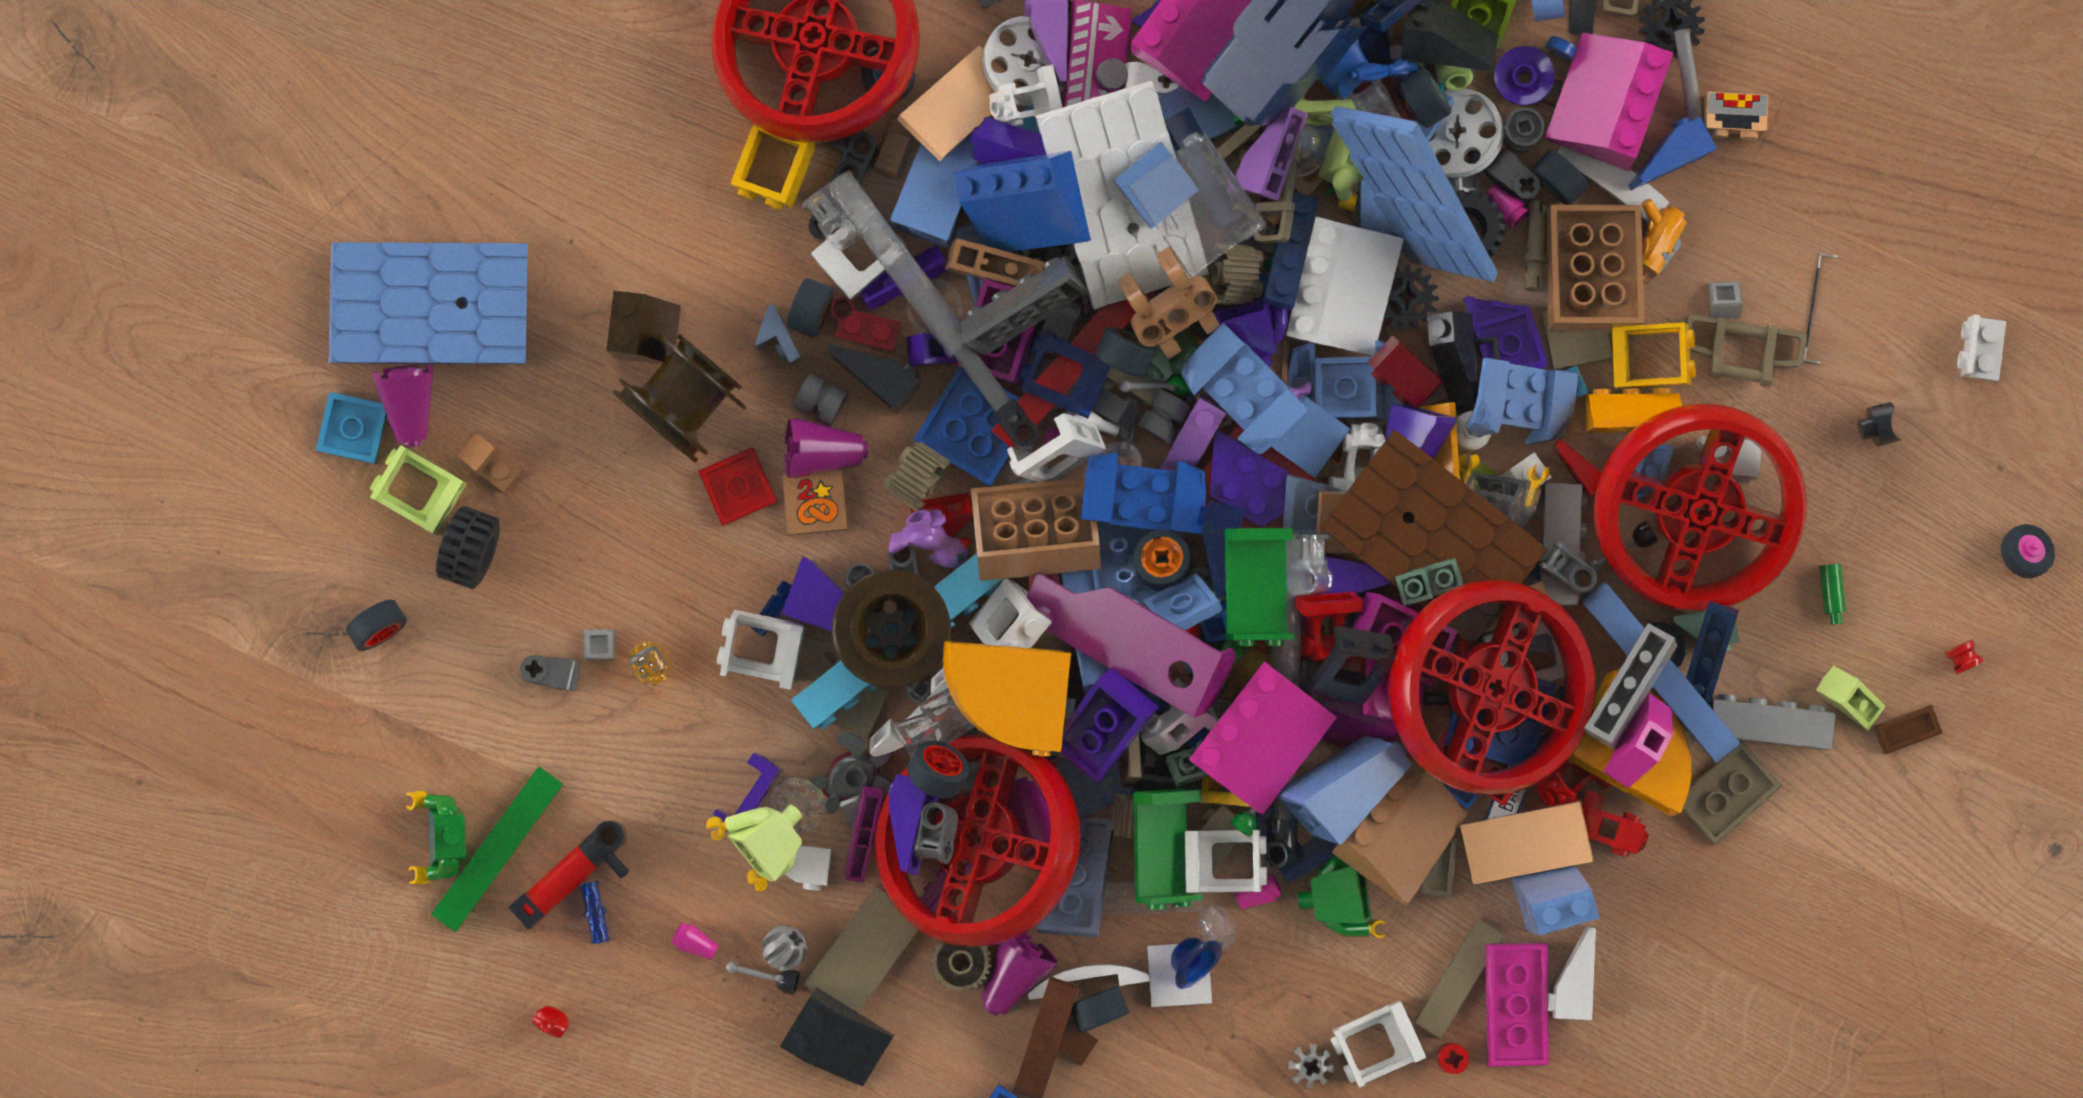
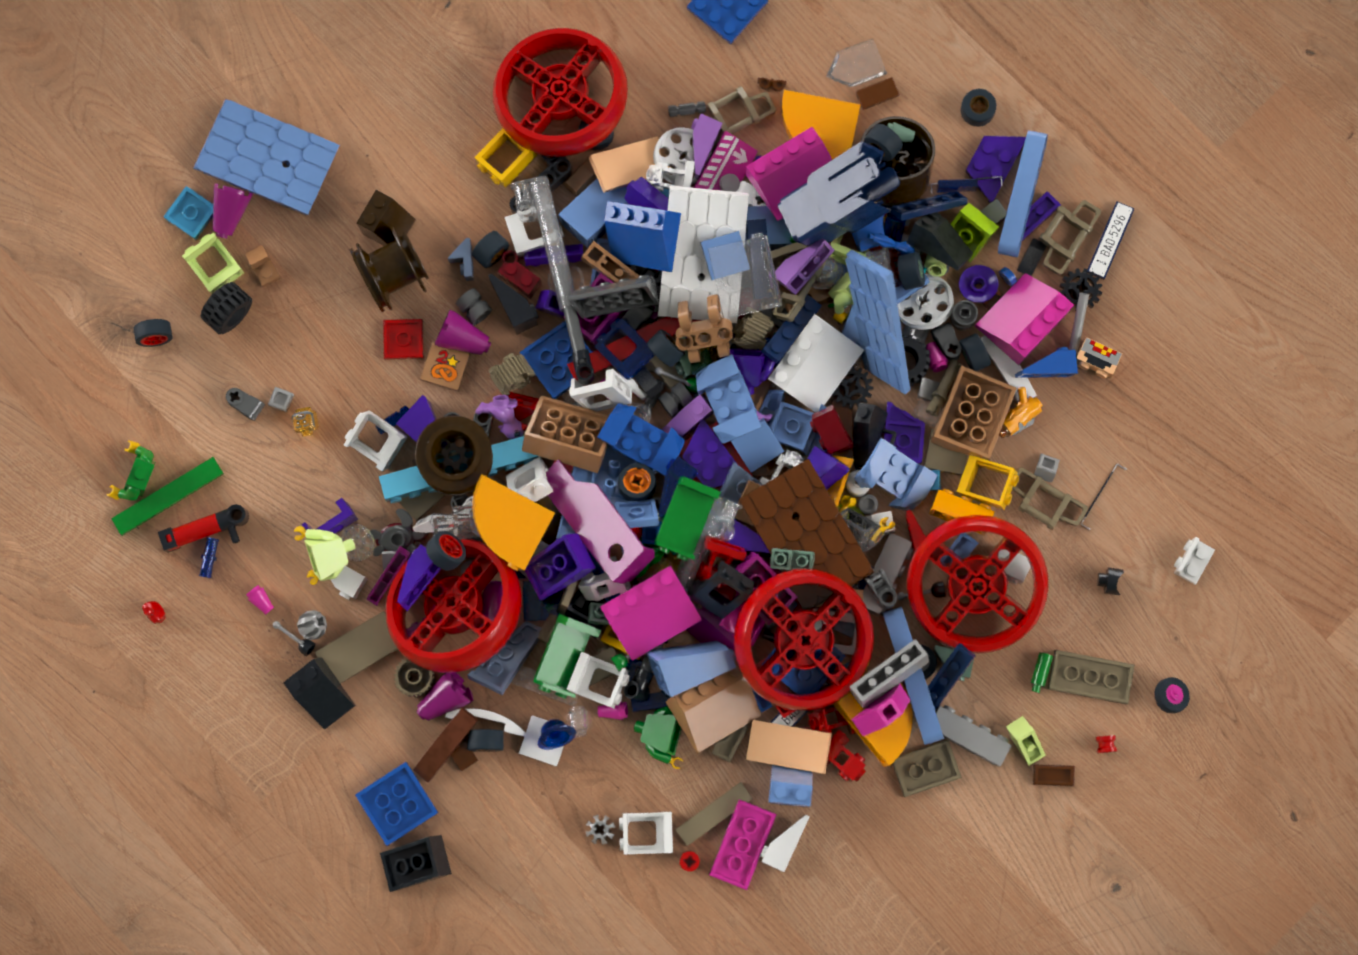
camera: 25 degrees right, 5 degrees down
(936, 835) = (428, 589): dark grey piece -> none
(1495, 454) = (868, 504): none -> light grey tile
(1511, 256) = (926, 389): none -> light grey slope
(1904, 570) = (1091, 677): none -> dark tan tile

